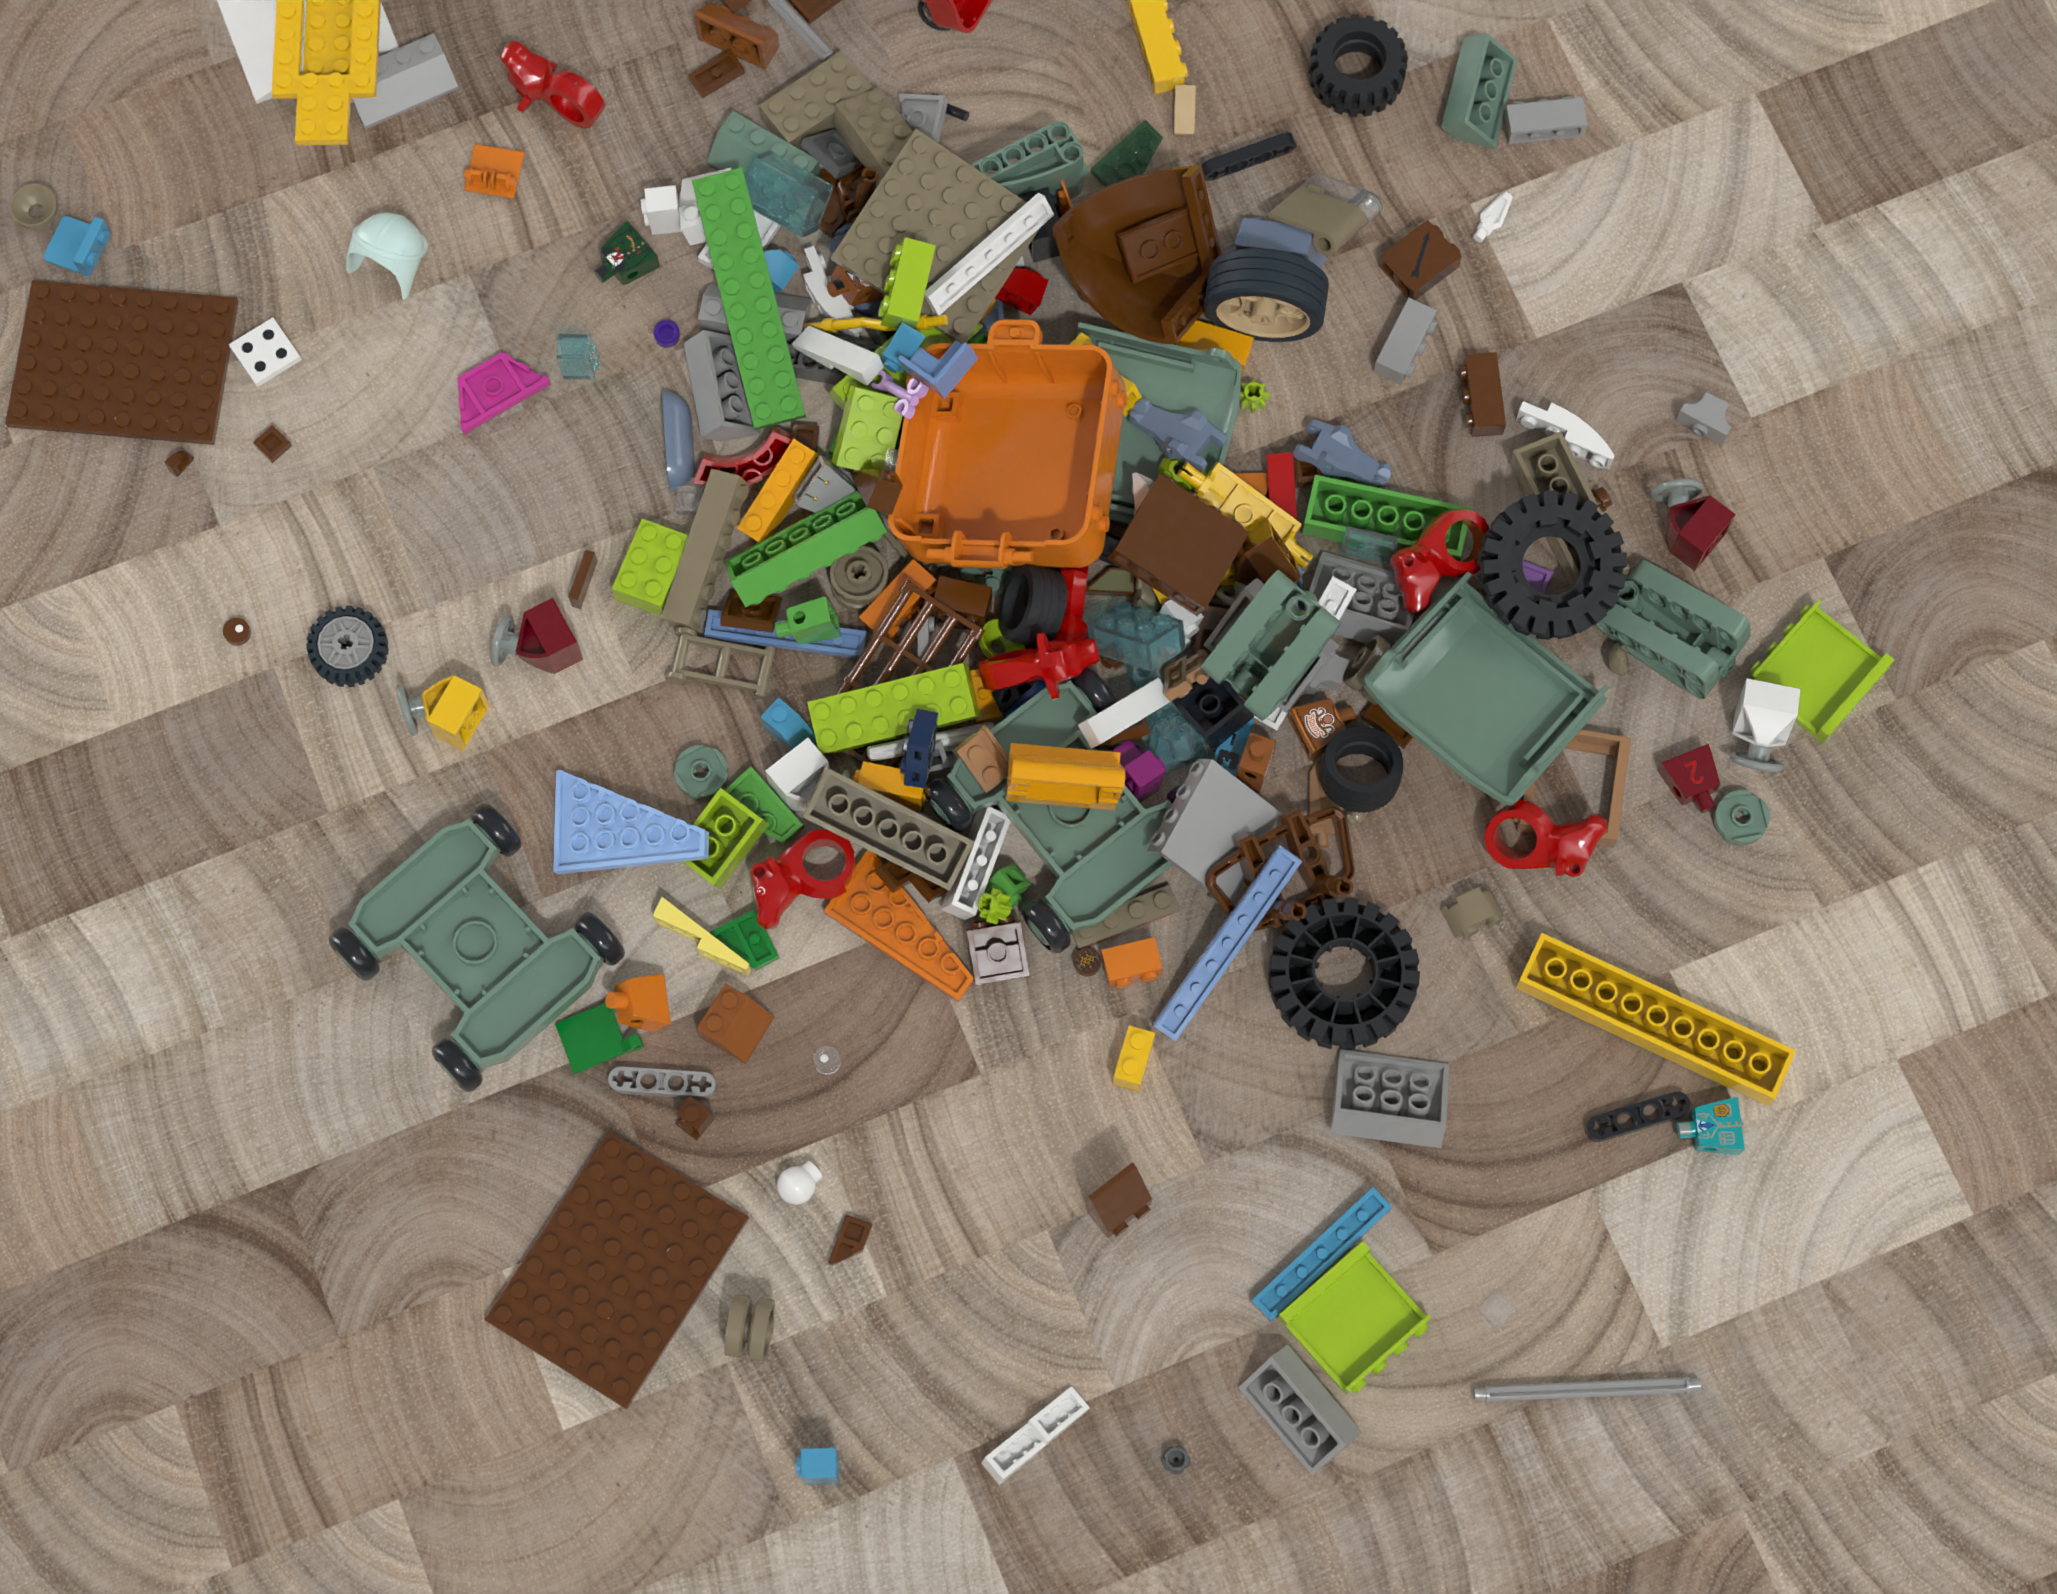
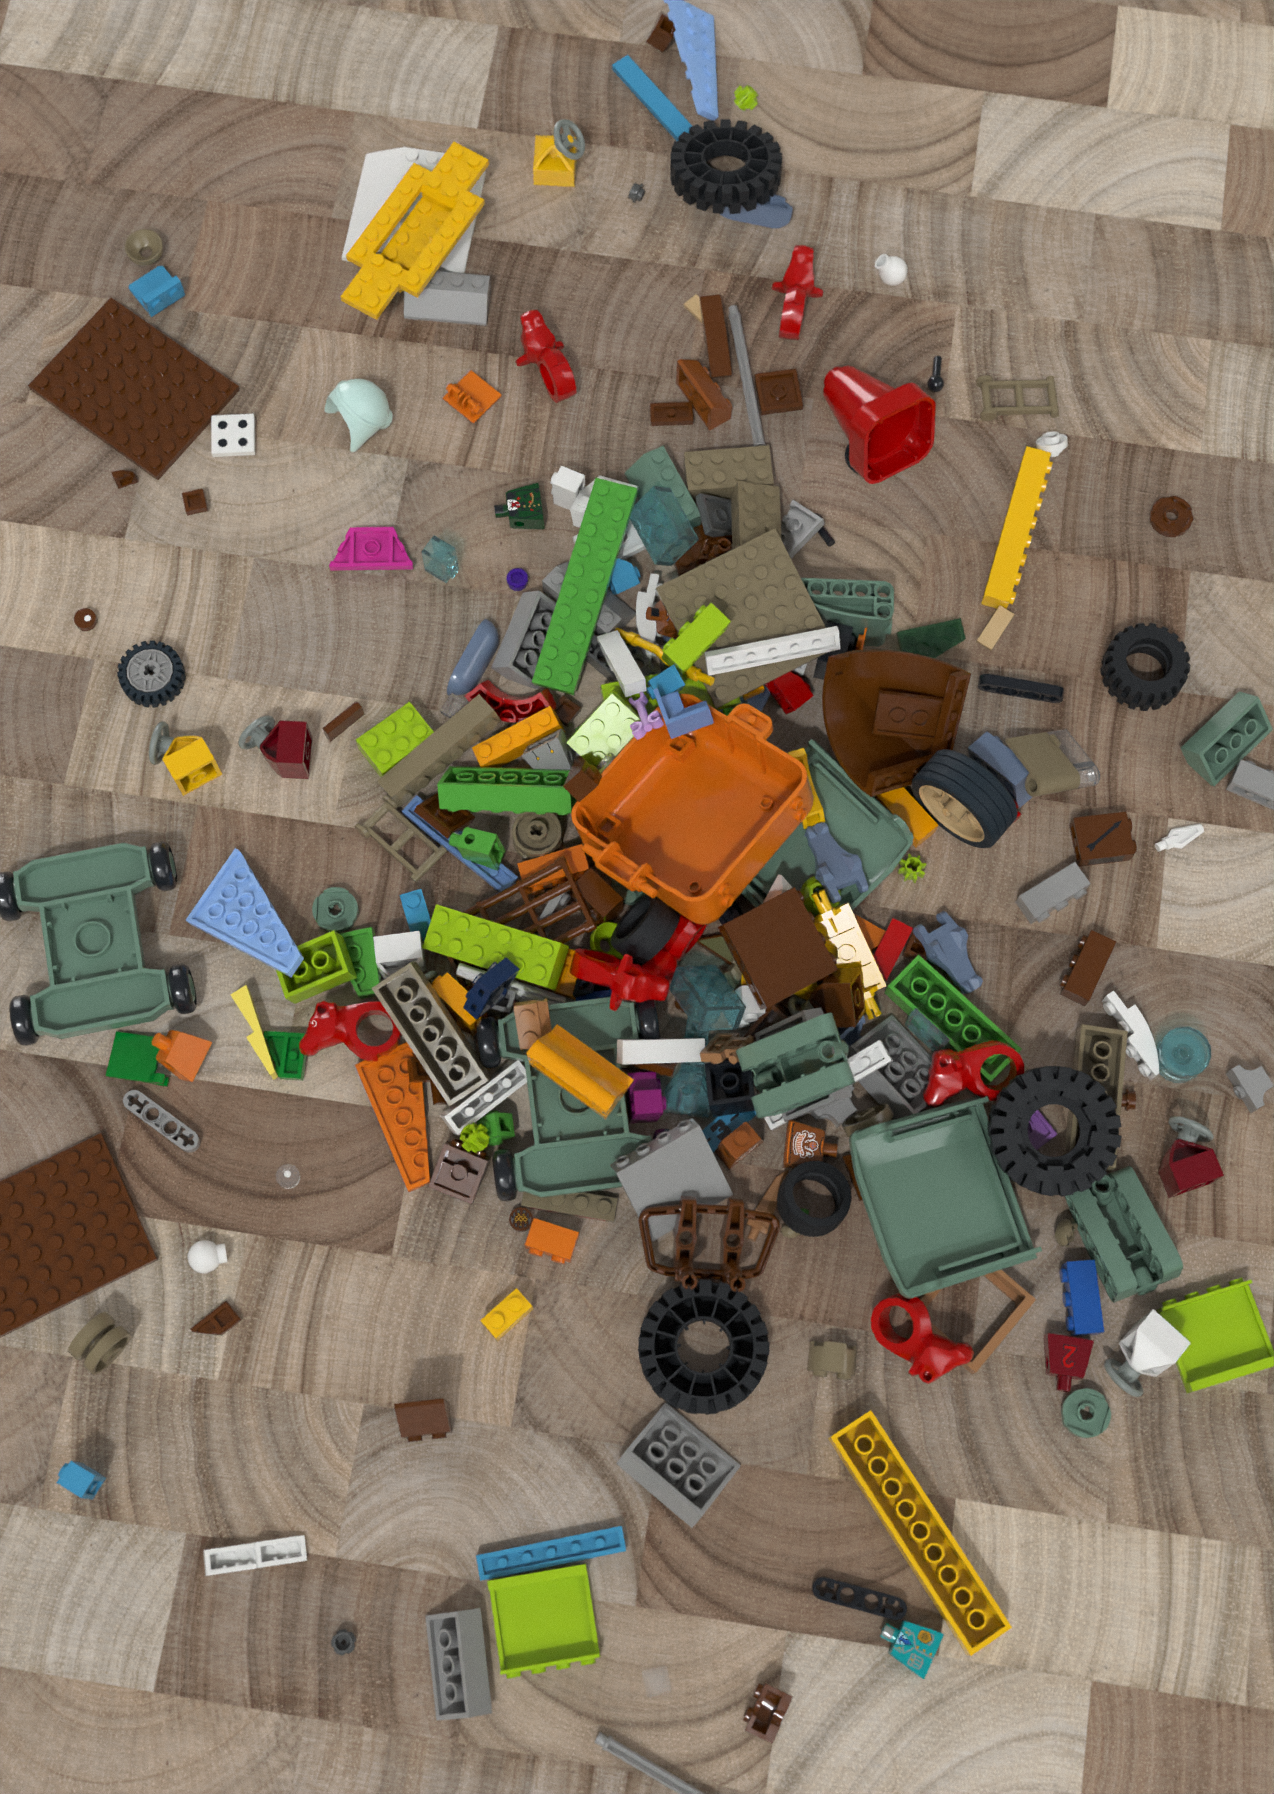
camera: 30 degrees right, 0 degrees up
(693, 1118) = (165, 1161): reddish brown brick -> none
(734, 1023) = (238, 1109): dark orange slope -> none
(1227, 943) = (629, 1270): medium blue tile -> none
(1618, 1269) = (767, 1712): none -> reddish brown cylinder
(1626, 424) = (1191, 1045): none -> clear light blue wheel
(1672, 712) = (1082, 1298): none -> blue brick

